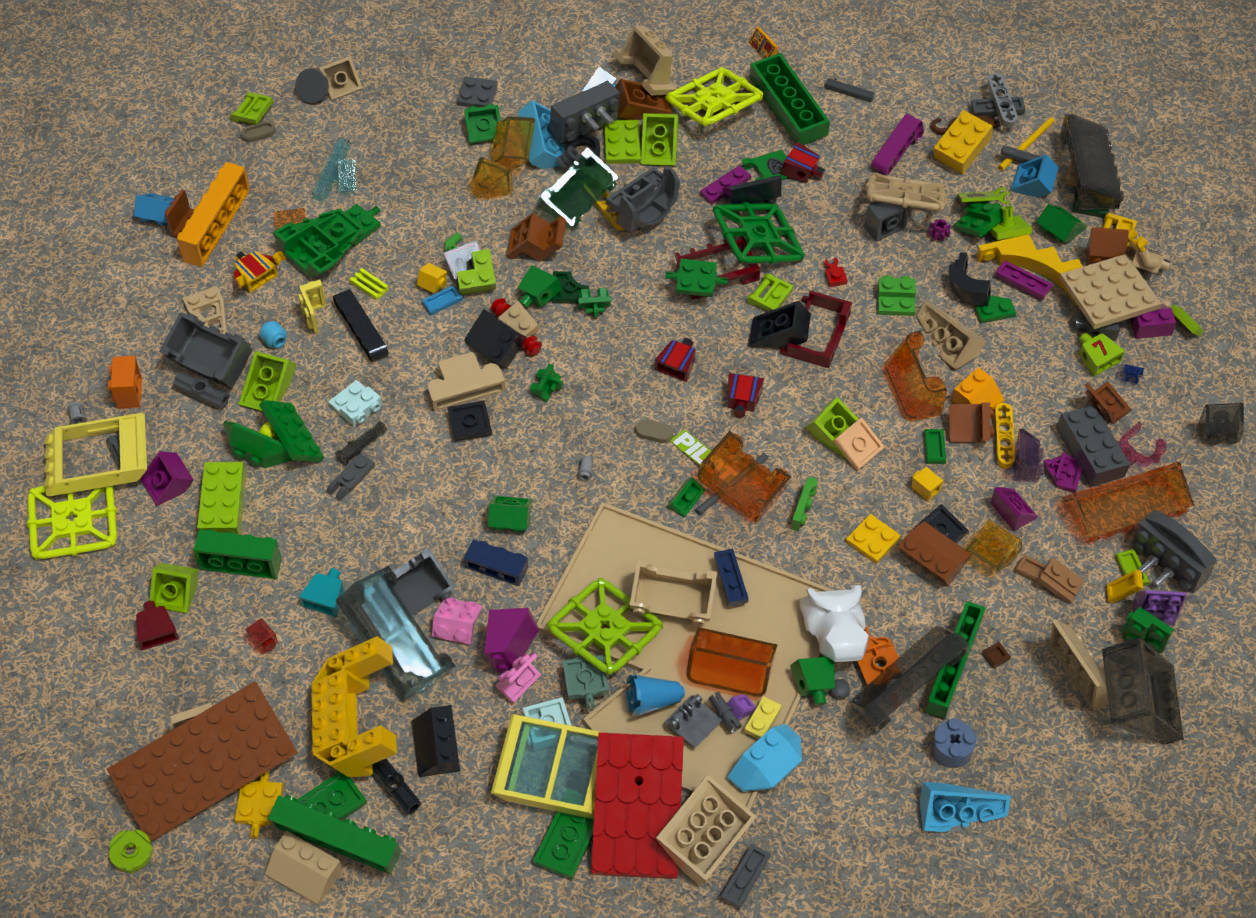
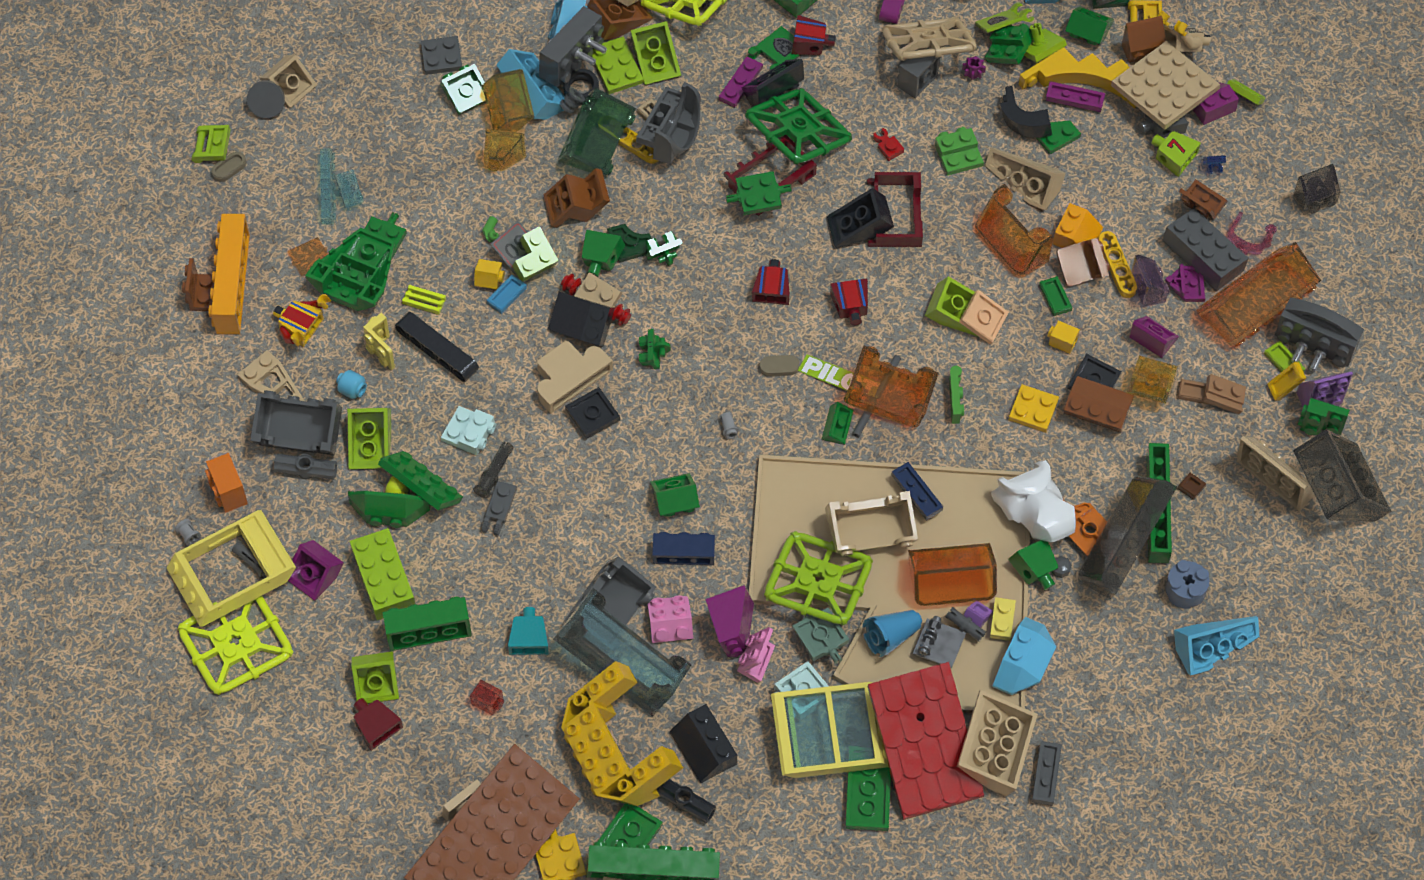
camera: 20 degrees left, 5 degrees up
(152, 207) = (163, 284): dark azure slope -> none
(774, 297) = (839, 189): lime plate -> none

